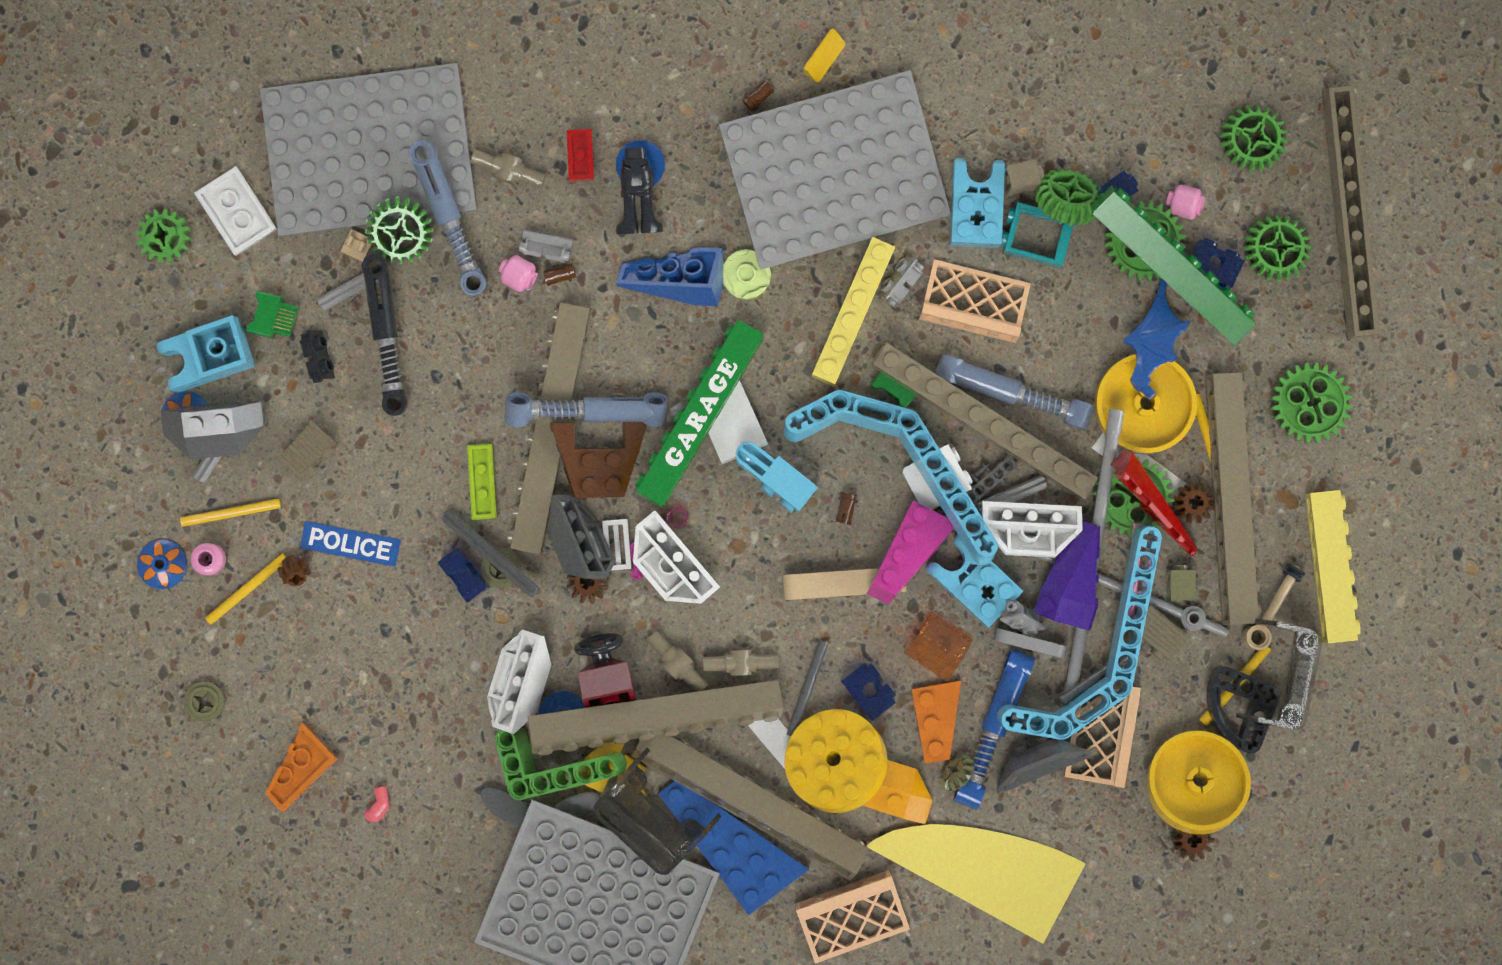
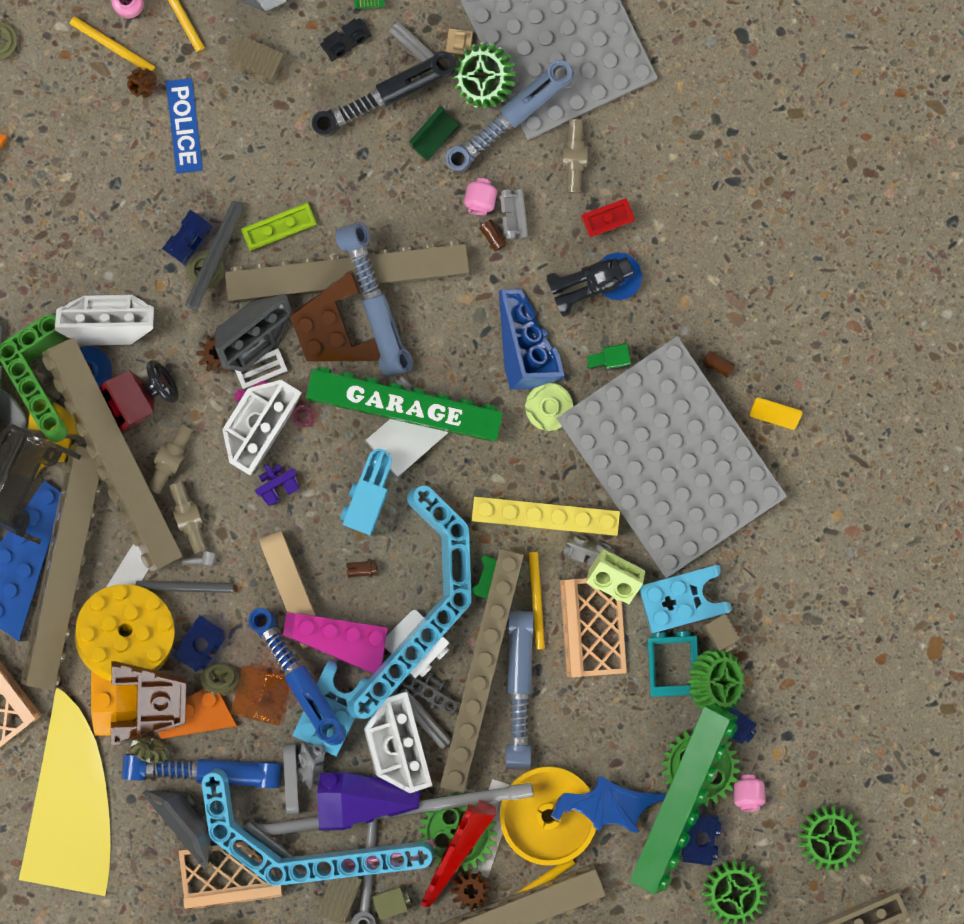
camera: 75 degrees right, 0 degrees up
(440, 300) = (433, 134): none -> dark green panel
(718, 197) = (610, 357): none -> green piece
(740, 576) = (268, 491): none -> dark purple hips
(787, 655) = (208, 559): none -> light grey hand
(902, 680) = (219, 671): none -> olive gear
(915, 748) = (159, 701): none -> wing
(931, 347) = (536, 600): none -> yellow bar
(932, 259) = (617, 572): none -> yellowish green brick
(935, 603) = (298, 678): none -> blue piece

